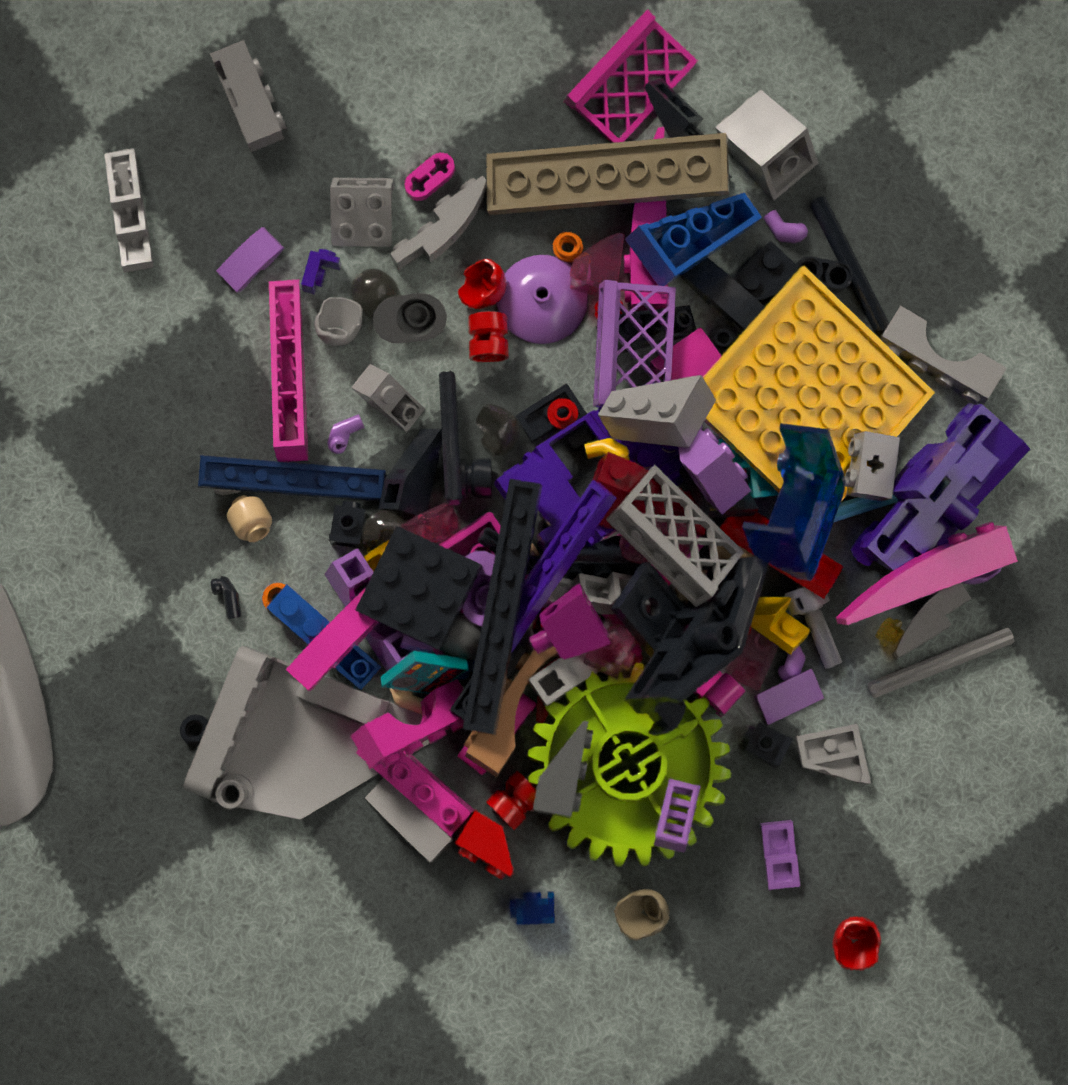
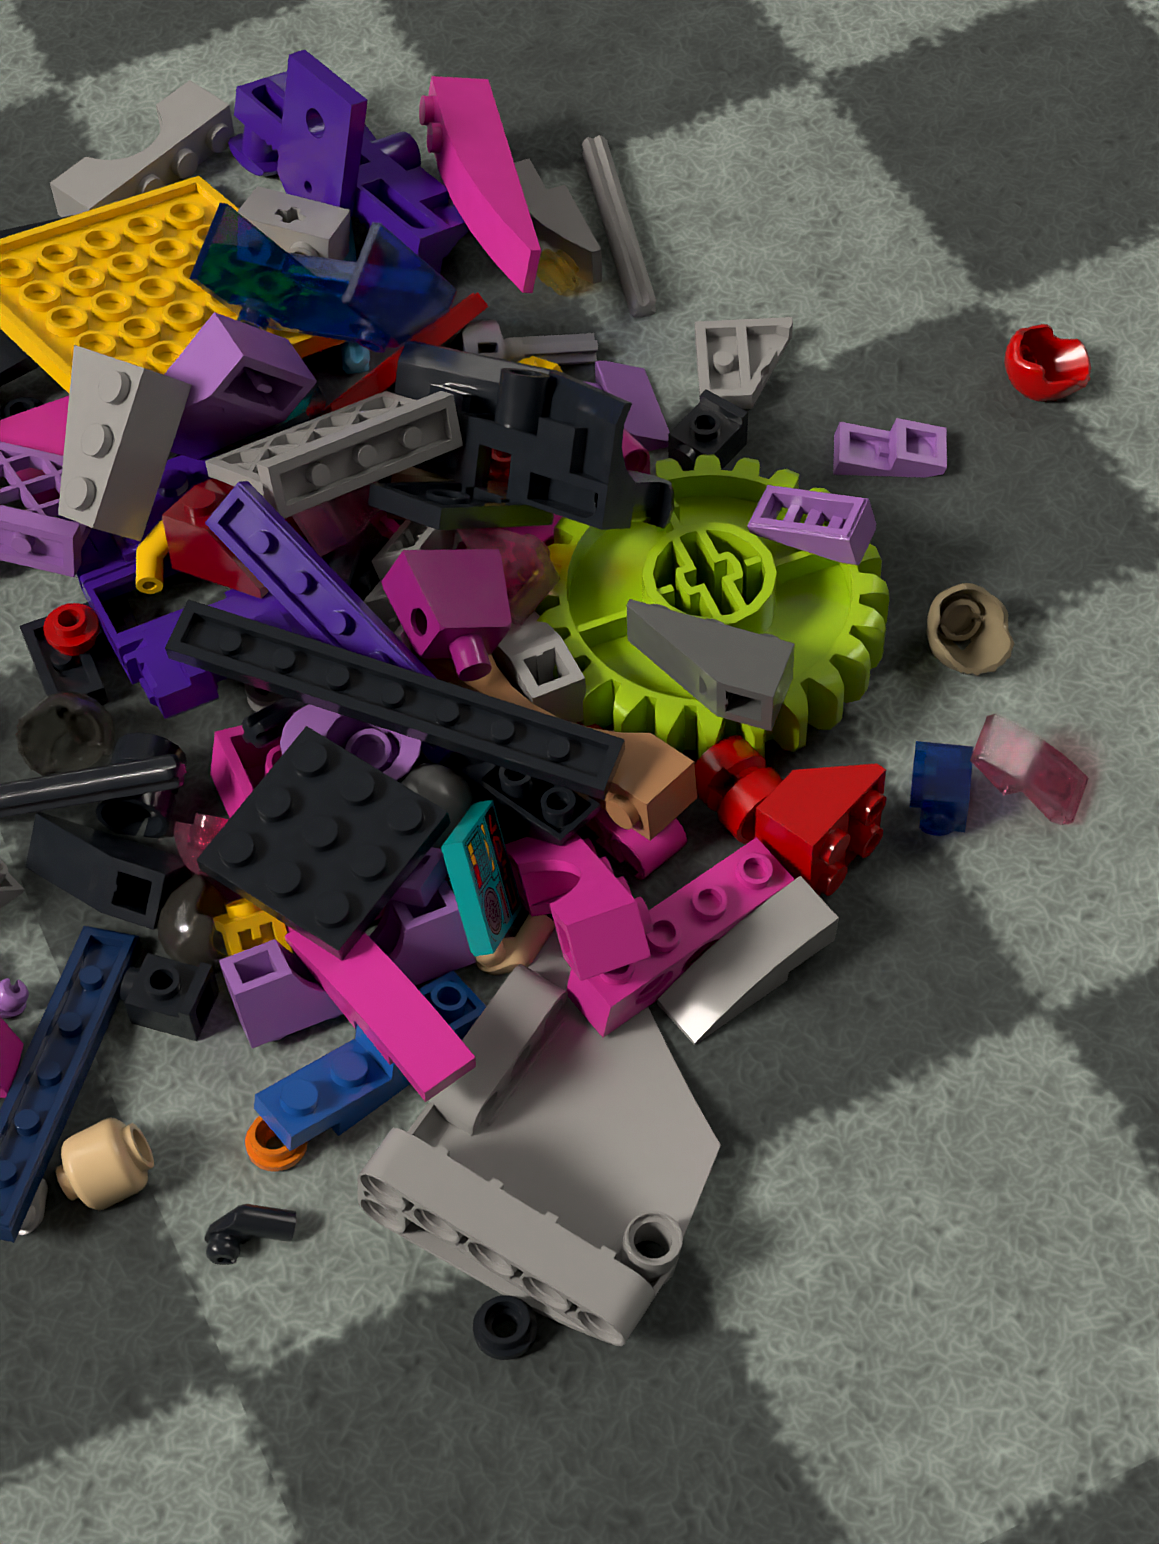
camera: 80 degrees left, 25 degrees down
(550, 955) = (1027, 764): none -> clear pink slope

